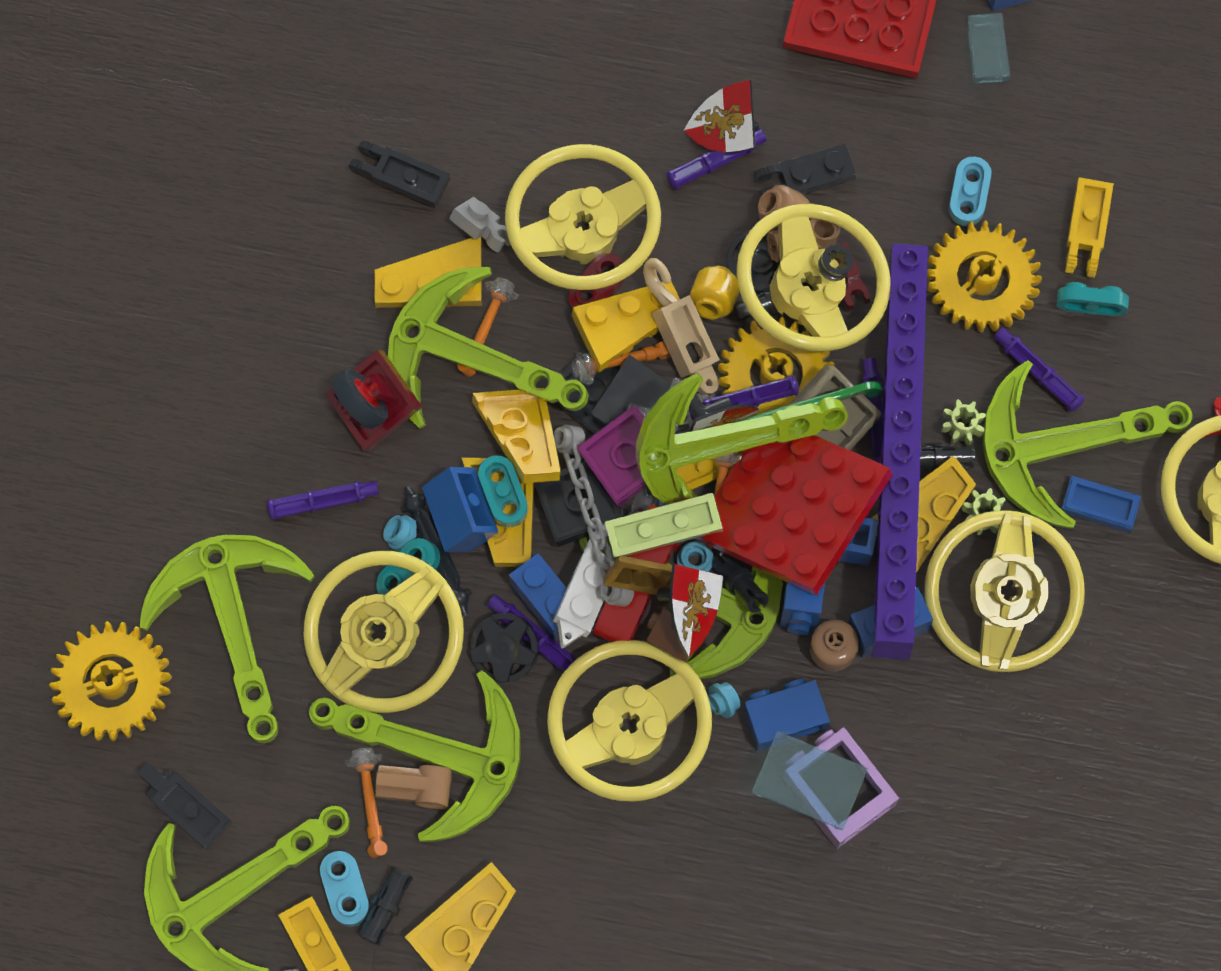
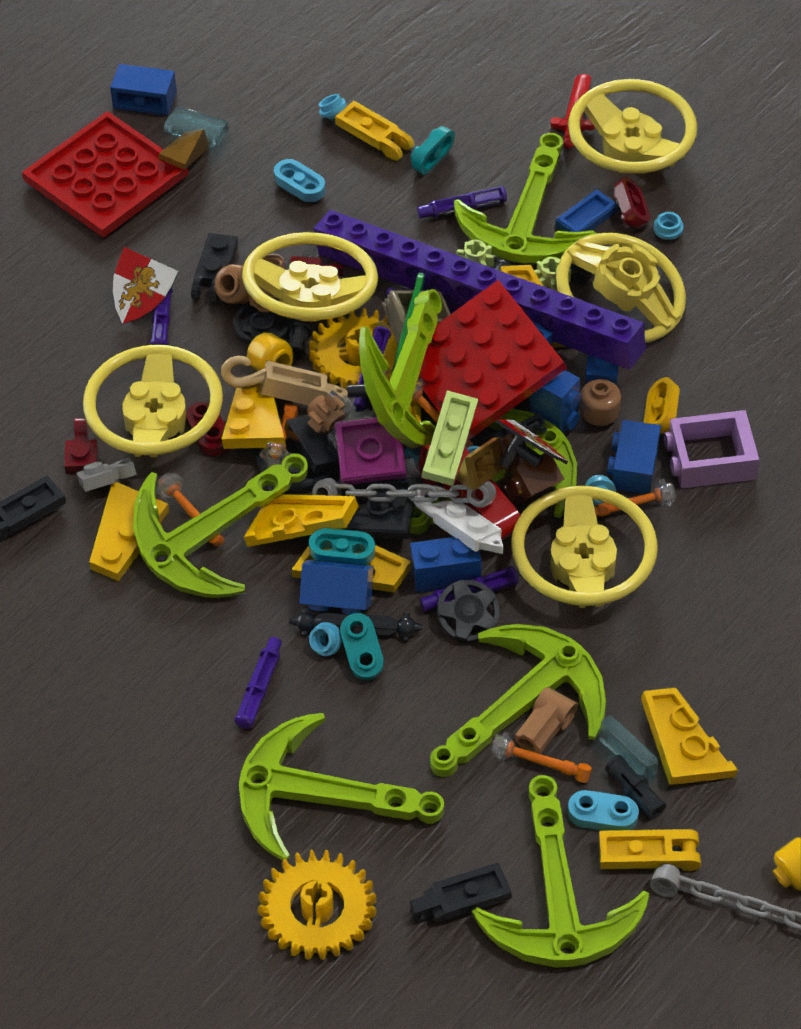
camera: 60 degrees left, 20 degrees down
(372, 399) = (202, 605): dark red plate -> none
(399, 613) = (409, 696): light yellow piece -> none
(420, 880) = (623, 743): none -> clear light blue tile
(497, 184) = (81, 450): none -> dark red plate
(649, 387) = (325, 412): none -> medium nougat gear
(752, 762) = (662, 494): none -> piece
(809, 780) = (700, 454): clear light blue piece -> none
(829, 254) = (311, 252): black bush -> none
(869, 709) = (662, 403): none -> yellow plate
(939, 56) = (185, 149): none -> pearl gold slope
(995, 255) = (370, 189): yellow gear -> none
(1094, 165) = (331, 106): none -> medium azure plate
(1137, 546) = (632, 203): none -> dark red plate
(1139, 589) = (668, 226): none -> medium azure plate

